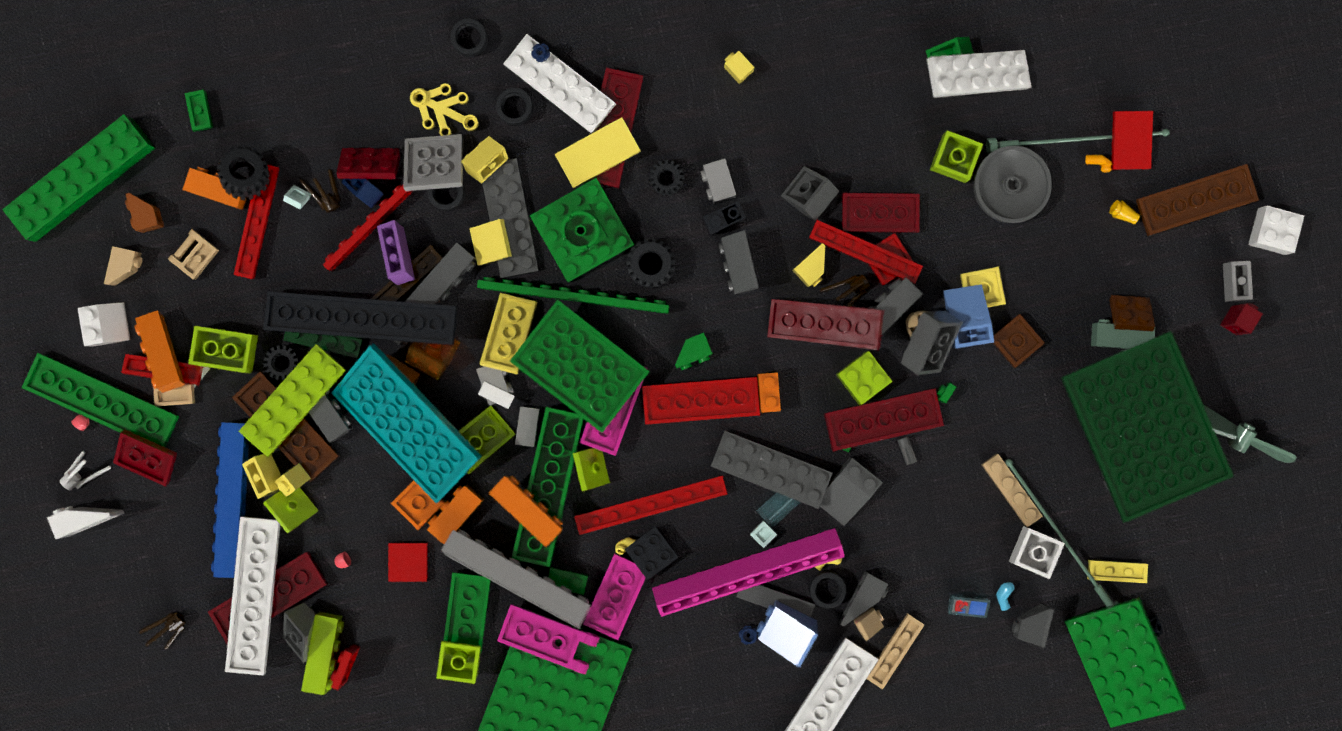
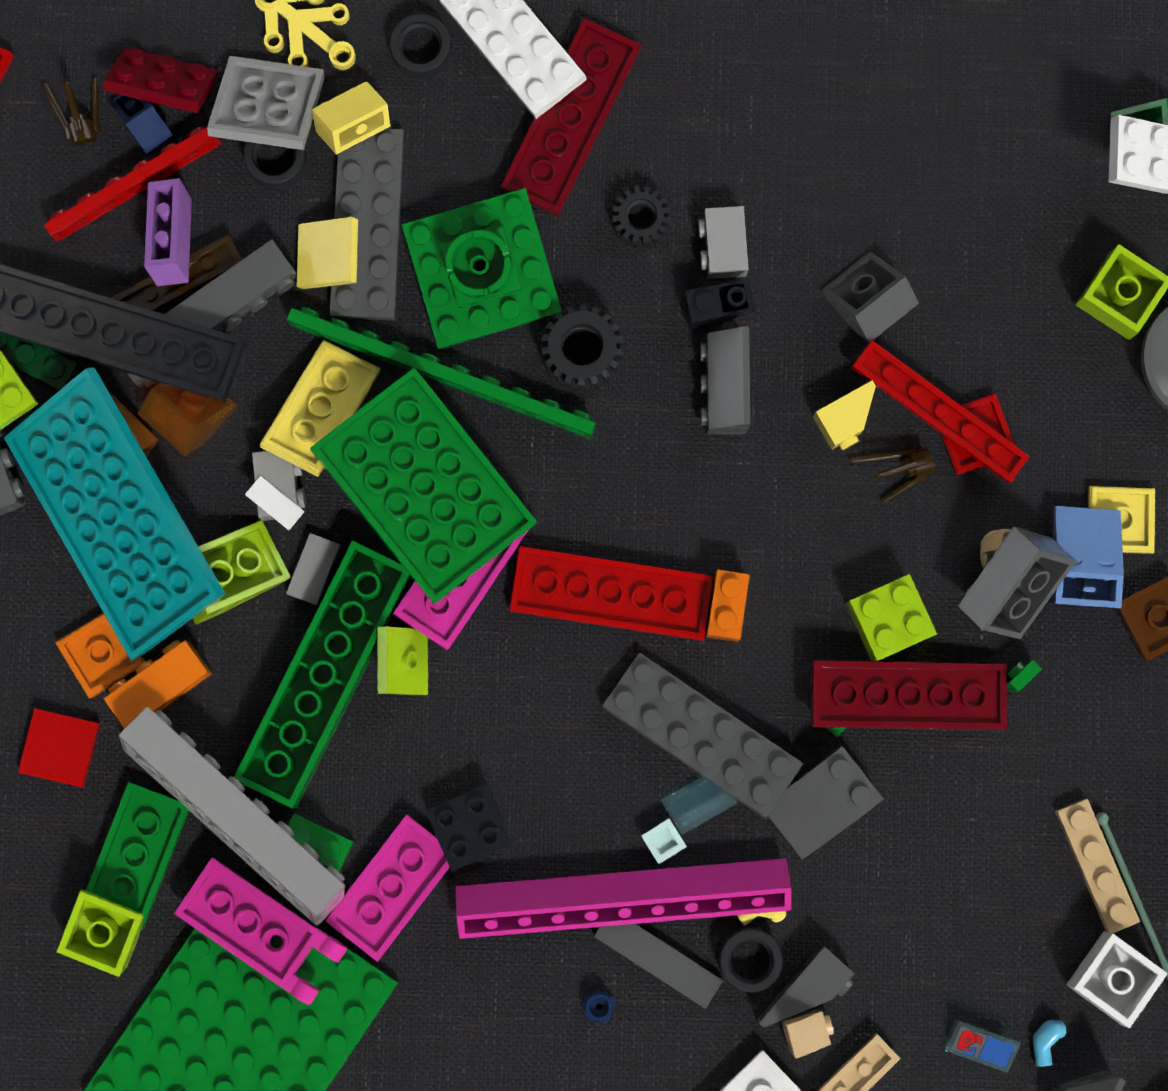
camera: 10 degrees right, 5 degrees down
(297, 197) = (30, 108): light aqua plate -> none
(526, 510) = (277, 702): orange brick -> none
(597, 152) = (537, 149): light yellow tile -> none
(621, 545) = (421, 804): light yellow arm -> none
(650, 505) = (486, 747): red plate -> none
(693, 349) = (619, 507): green slope -> none
(738, 66) = (799, 66): light yellow brick -> none
(788, 632) = (666, 1015): slope -> none
(825, 324) = (848, 512): dark red plate -> none
(880, 212) = (979, 355): dark red plate -> none
(896, 301) = (961, 509): dark grey brick -> none
(907, 451) = (936, 757): dark grey piece -> none

